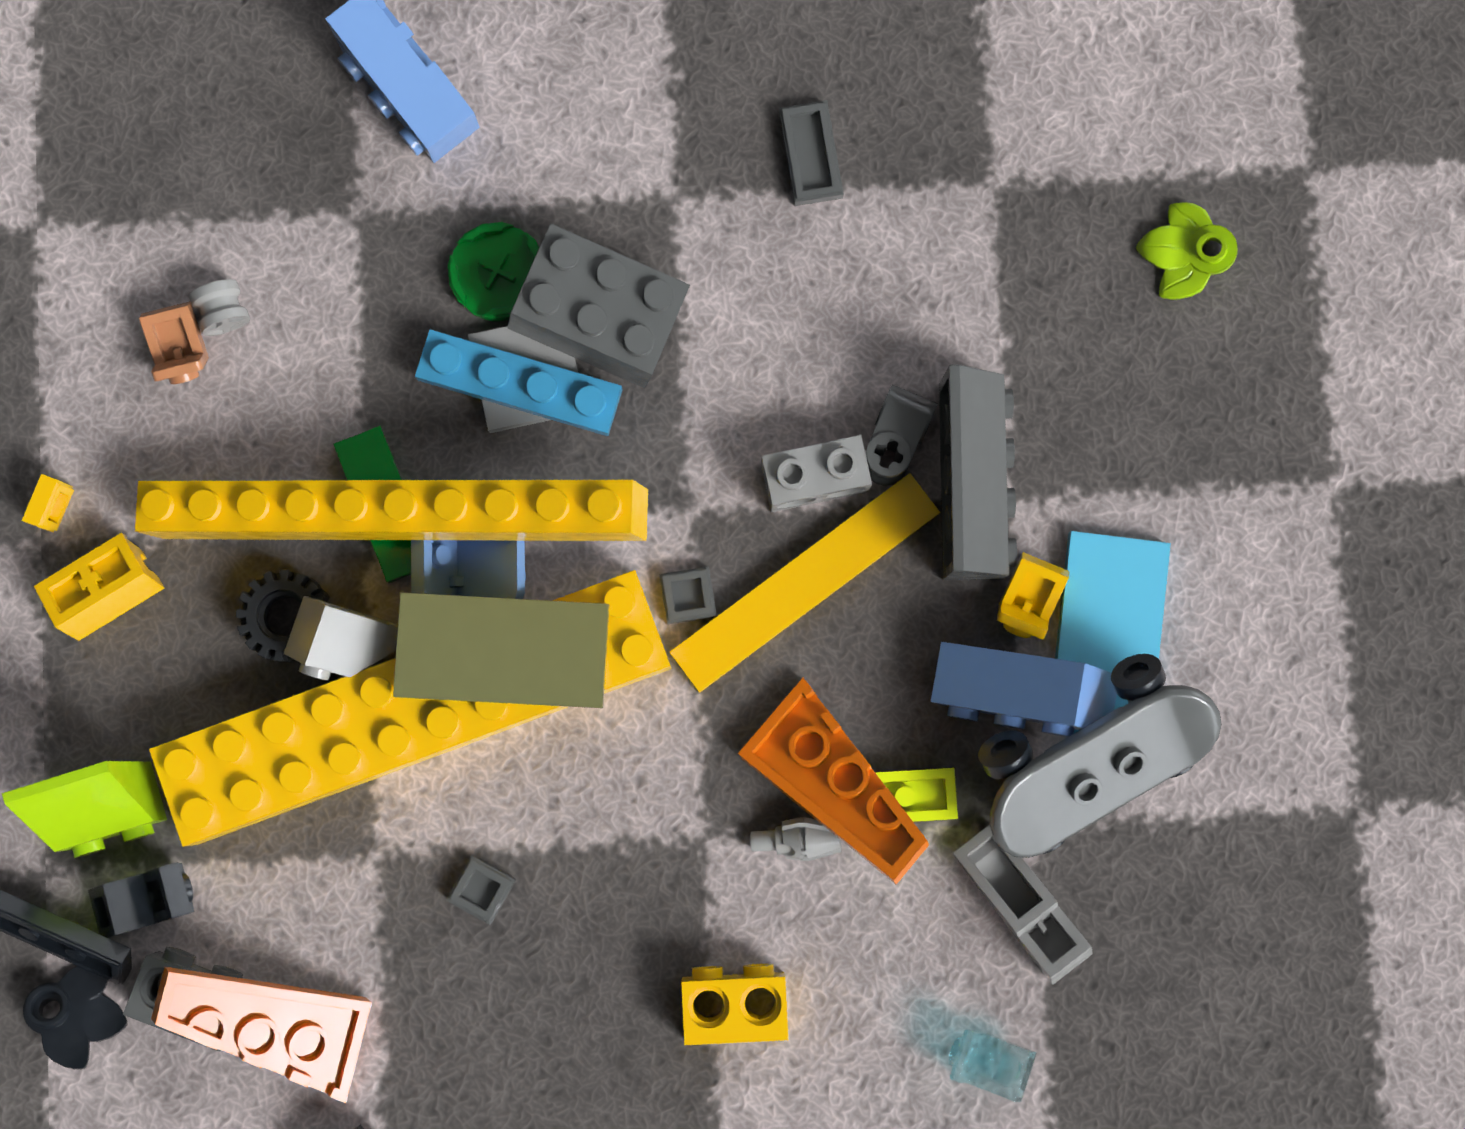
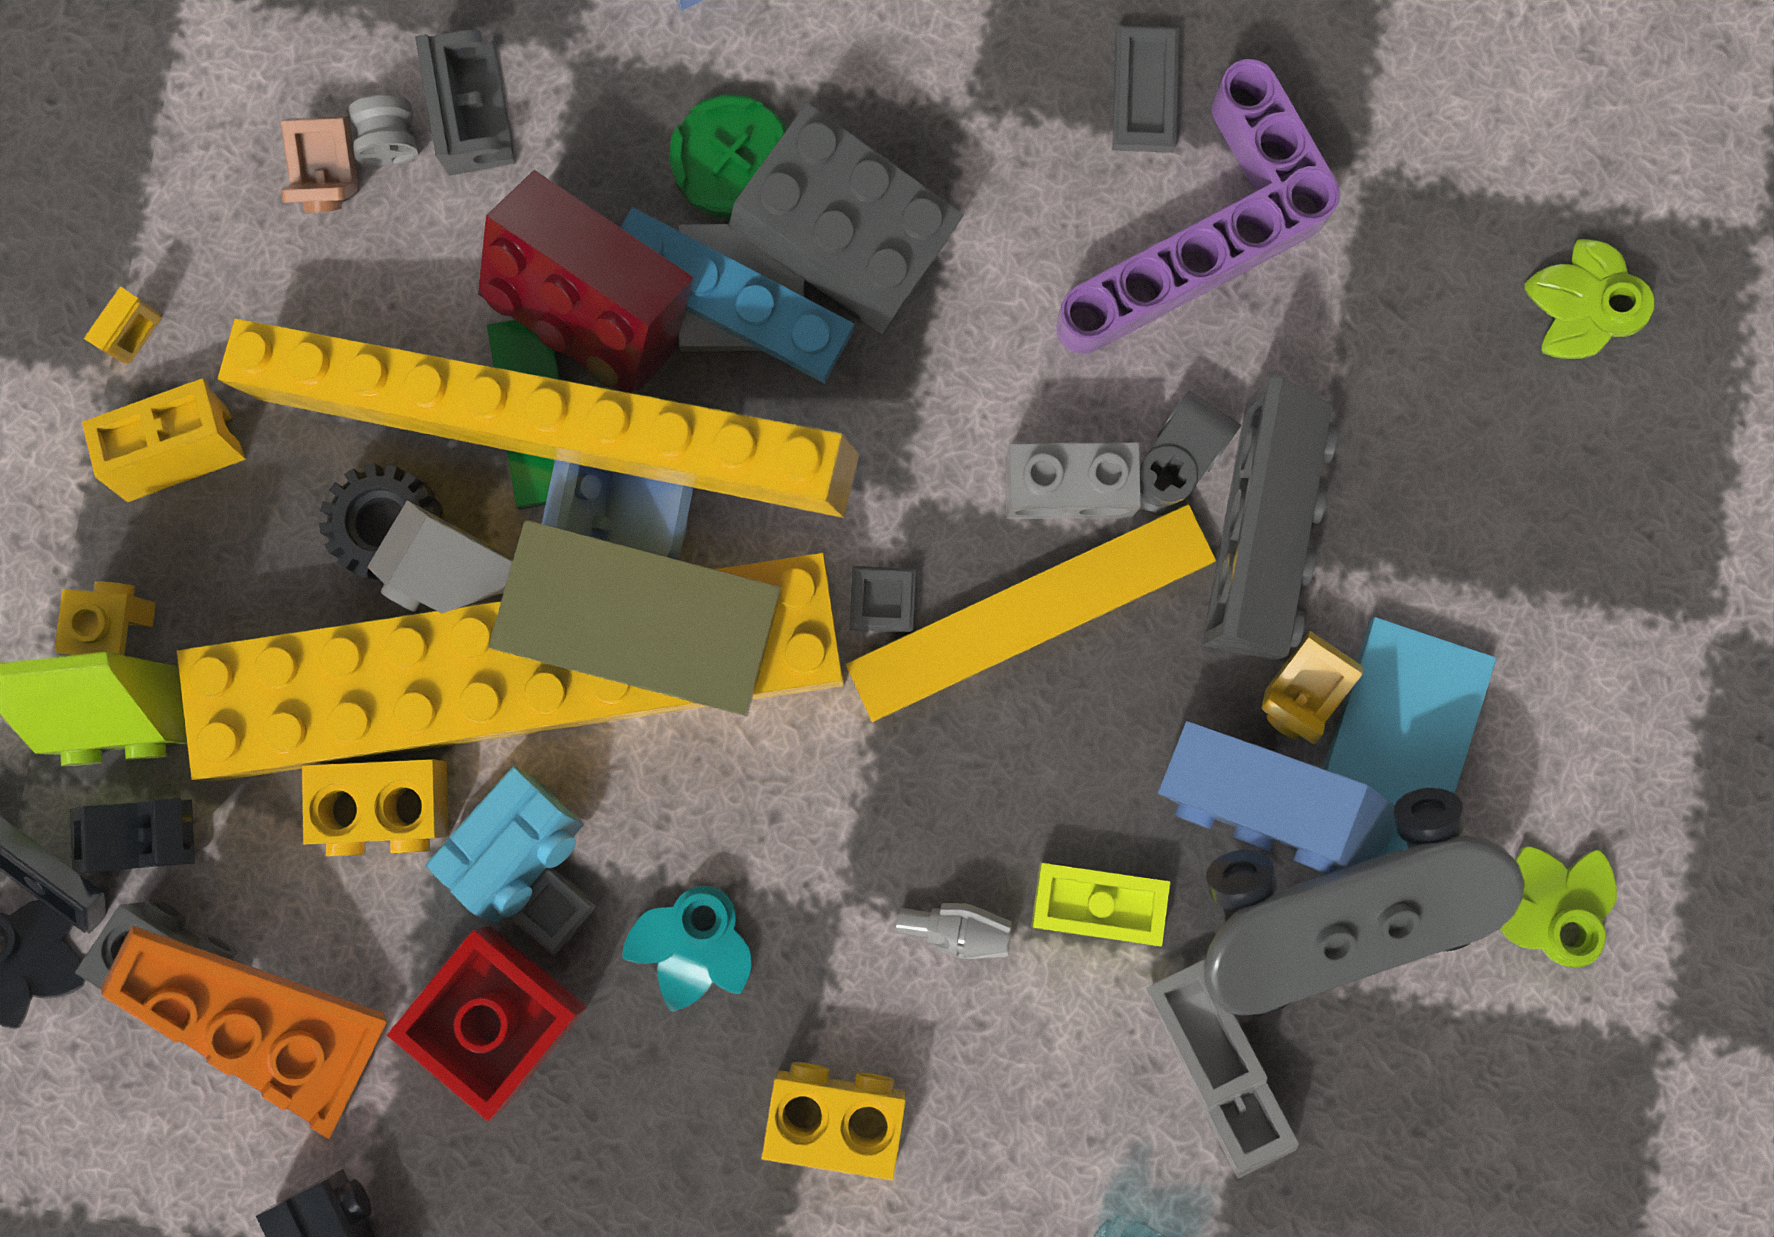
camera: 15 degrees right, 0 degrees up
(81, 738) = (100, 618): none -> yellow bracket
(279, 271) = (465, 101): none -> dark grey hinge
(325, 826) = (376, 794): none -> yellow brick
(404, 399) = (582, 283): none -> dark red brick
(436, 847) = (505, 846): none -> medium azure brick
(450, 985) = (487, 1021): none -> red brick
(592, 902) = (687, 955): none -> teal plate
(828, 777) = (1009, 859): orange wing -> none
(888, 258) = (1217, 236): none -> medium lavender beam
(1252, 717) = (1562, 896): none -> lime plate

